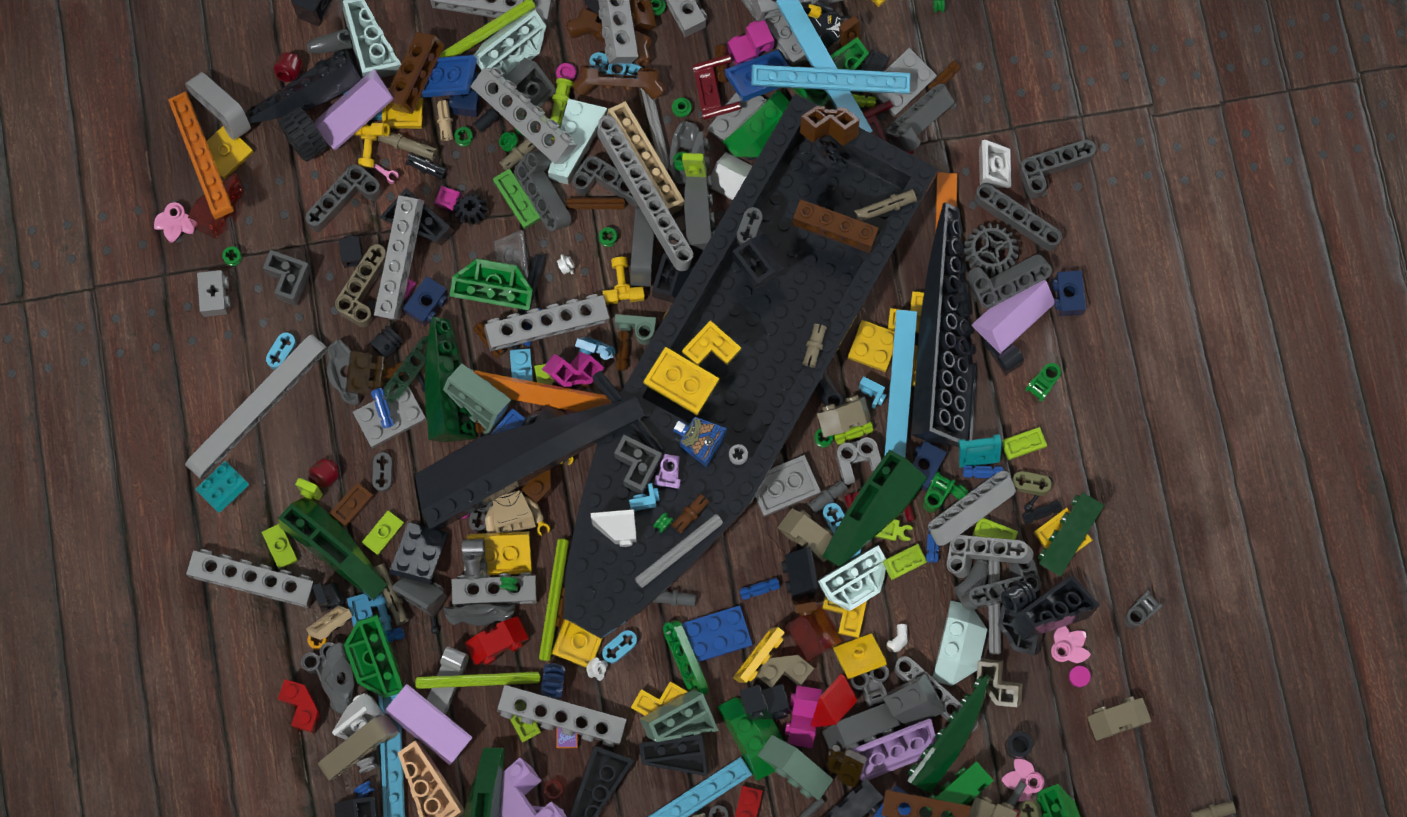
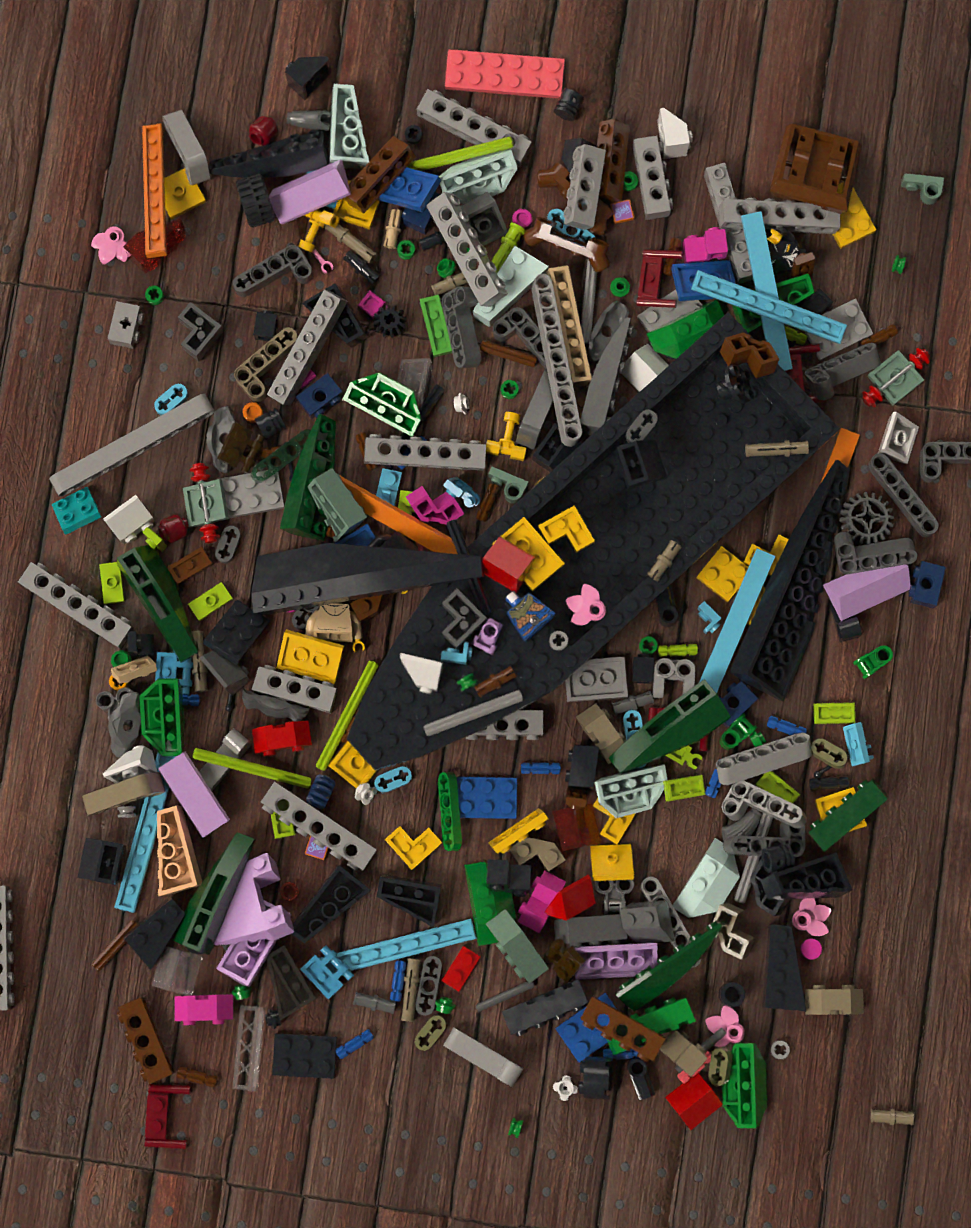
camera: 20 degrees right, 5 degrees up
(277, 479) = (129, 520): none -> white slope
(307, 713) = (87, 746): red brick -> none
(311, 616) = (120, 657): none -> green plate
(347, 439) = (205, 503): none -> sand green plate
(363, 337) = (252, 411): none -> orange tile
(364, 790) = (116, 834): blue bush -> none
(382, 408) = (246, 485): blue axle -> none
(433, 20) = (407, 133): none -> black bush
(474, 558) = (284, 655): flat silver piece -> none
(508, 583) = (309, 688): green bush -> none
(660, 36) = (622, 211): none -> tile
(664, 396) = (507, 564): none -> red slope
(675, 598) = (461, 752): dark grey pin -> none
(678, 163) = (602, 339): green bush -> none
(679, 718) = (425, 865): sand green wedge -> none
(694, 165) = (611, 349): lime plate -> none
(736, 542) = (533, 732): none -> light grey brick
(751, 412) = (583, 604): none -> bright pink plate
(826, 461) = (643, 669): none -> black brick
(835, 226) = (722, 453): reddish brown brick -> none
(843, 417) = (668, 634): dark tan brick -> none
(900, 640) = (654, 860): white arm -> none
(972, 109) = (895, 377): none -> sand green plate
(979, 451) = (789, 707): teal plate -> none
(1055, 465) = (856, 744): none -> medium azure plate
(1060, 710) = (782, 973): none -> black wedge
(1085, 790) = (780, 1043): none -> light grey bush
(1144, 609) = (894, 906): dark grey piece -> none

